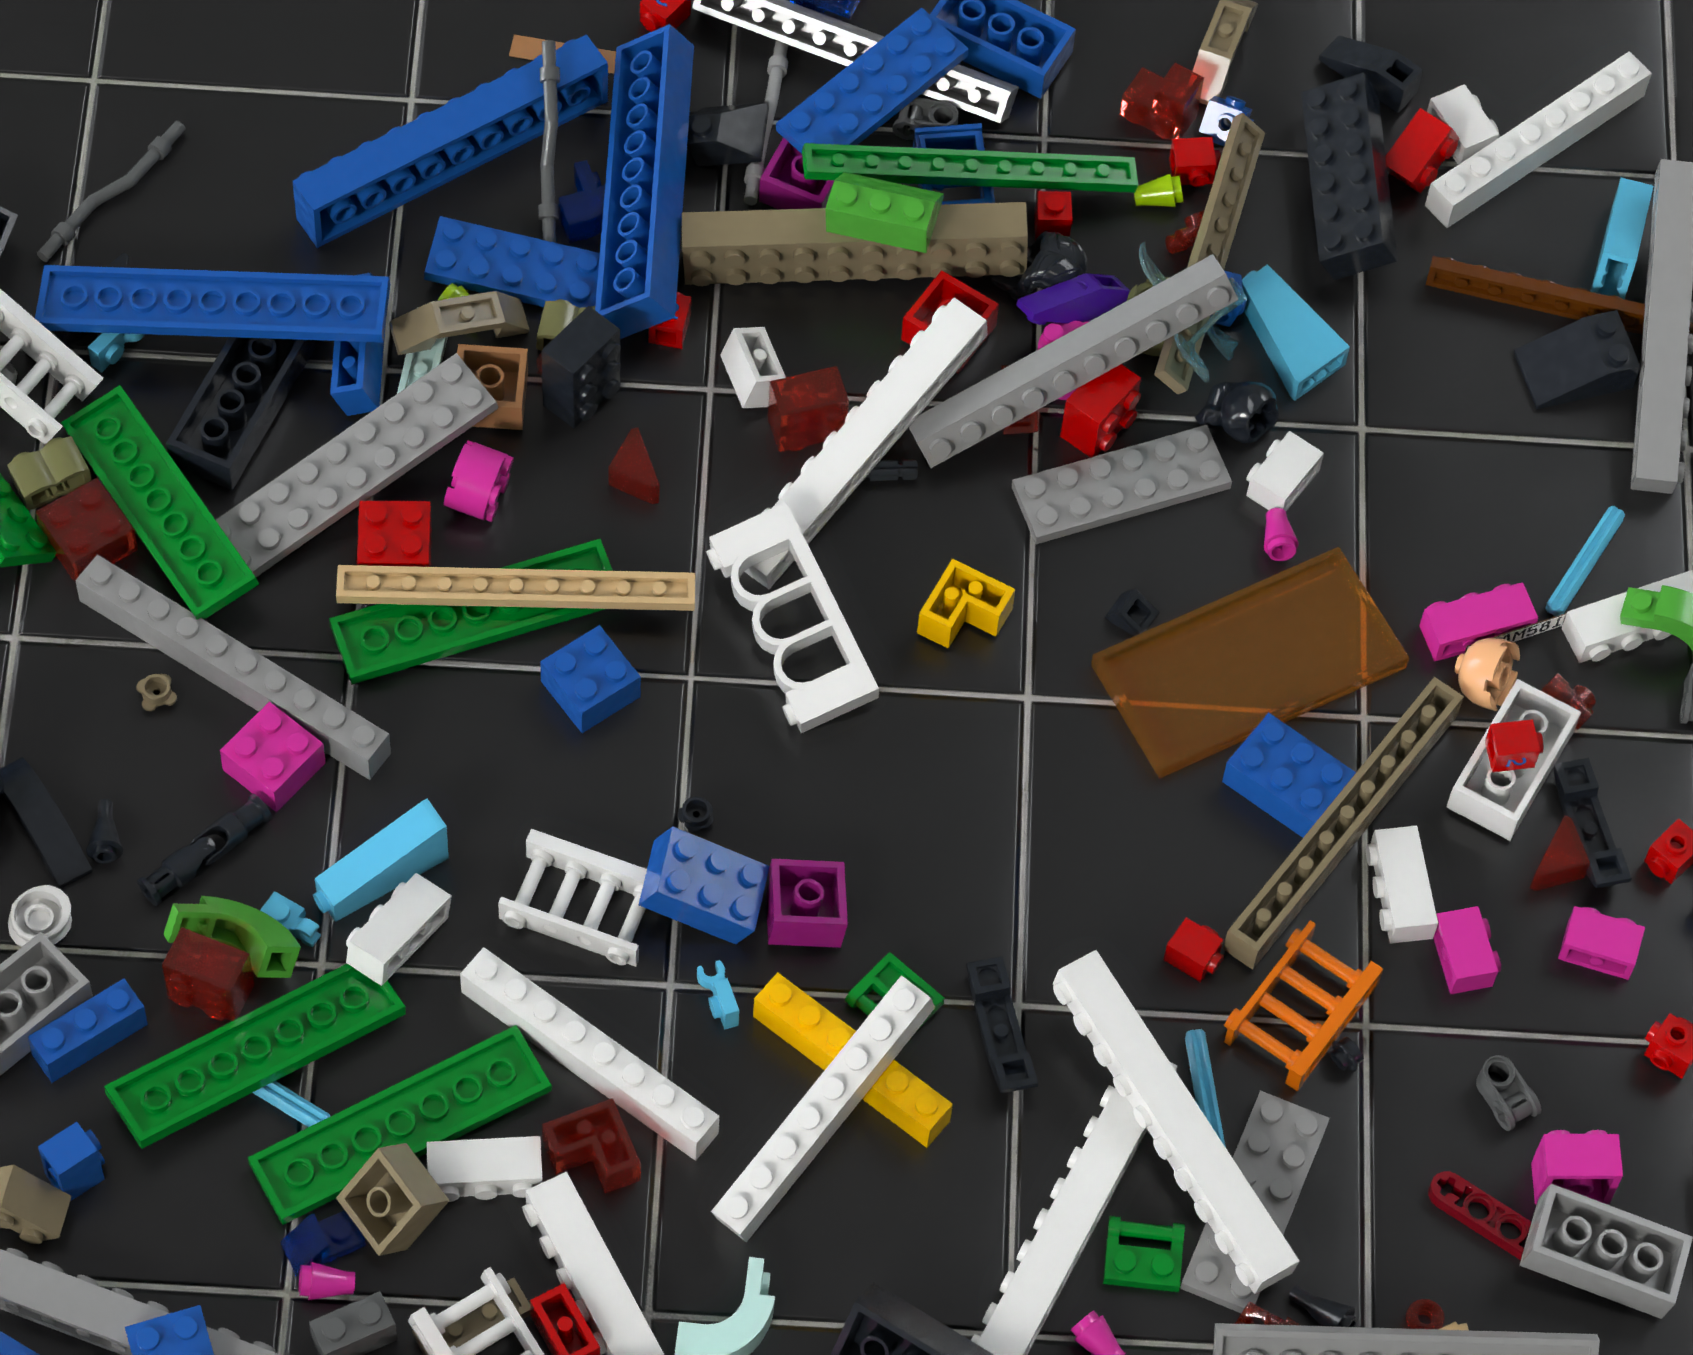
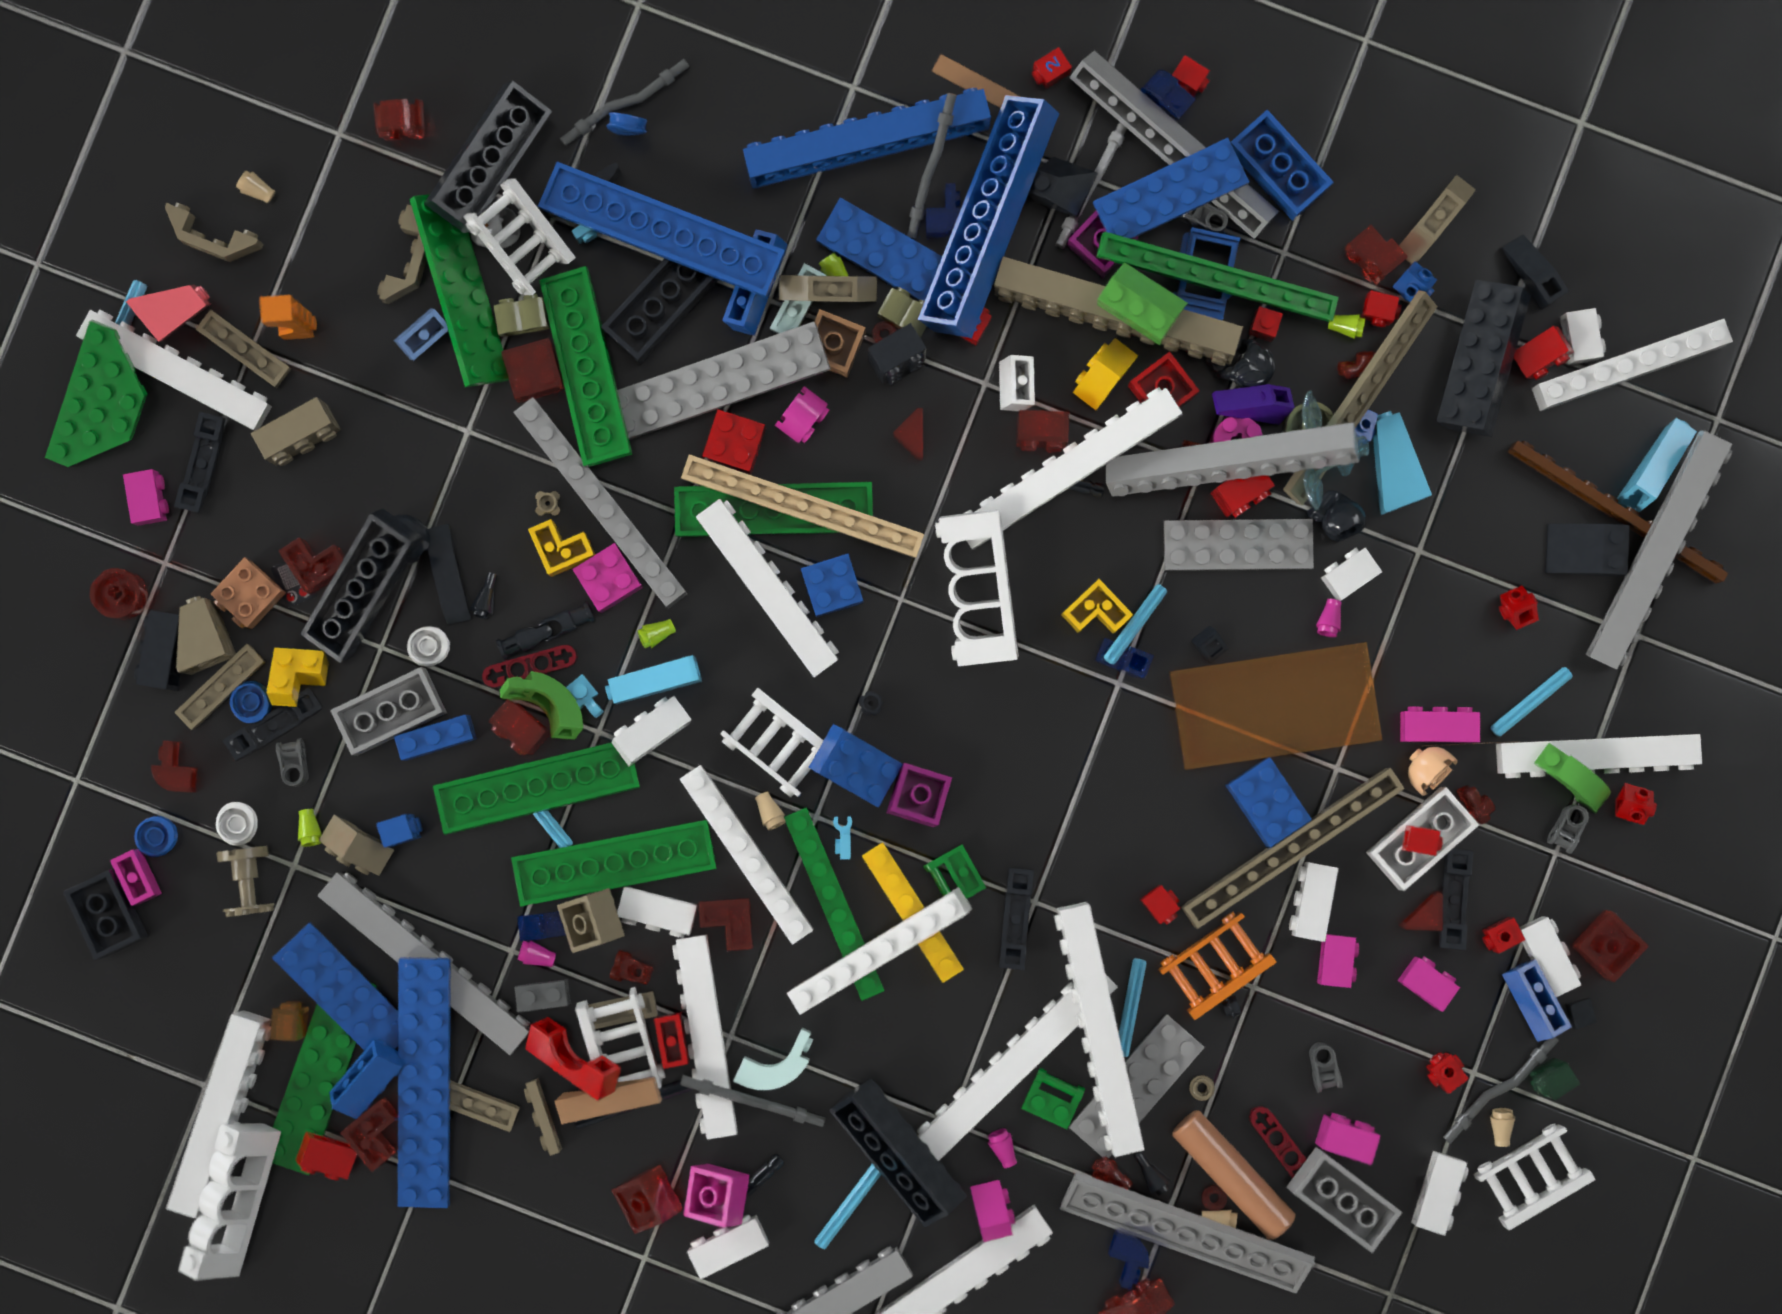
camera: 20 degrees right, 25 degrees up
(124, 208) = (626, 124): none -> blue piece
(191, 742) = (559, 554): none -> yellow brick
(192, 896) = (529, 664): none -> dark red beam
(361, 810) = (656, 632): none -> lime cone
(471, 1258) = (626, 967): none -> clear red plate
(502, 702) = (767, 587): none -> white brick
(604, 993) = (769, 811): none -> tan cone
(726, 1078) = (830, 894): none -> green plate
(866, 320) = (1104, 373): none -> yellow brick
(1022, 608) = (1135, 624): none -> medium azure axle
(1030, 658) = (1131, 662): none -> clear blue brick
(1350, 1165) = (1210, 1088): none -> dark tan plate
(1437, 1268) = (1234, 1175): none -> nougat cylinder
(1519, 448) = (1519, 607): none -> red brick

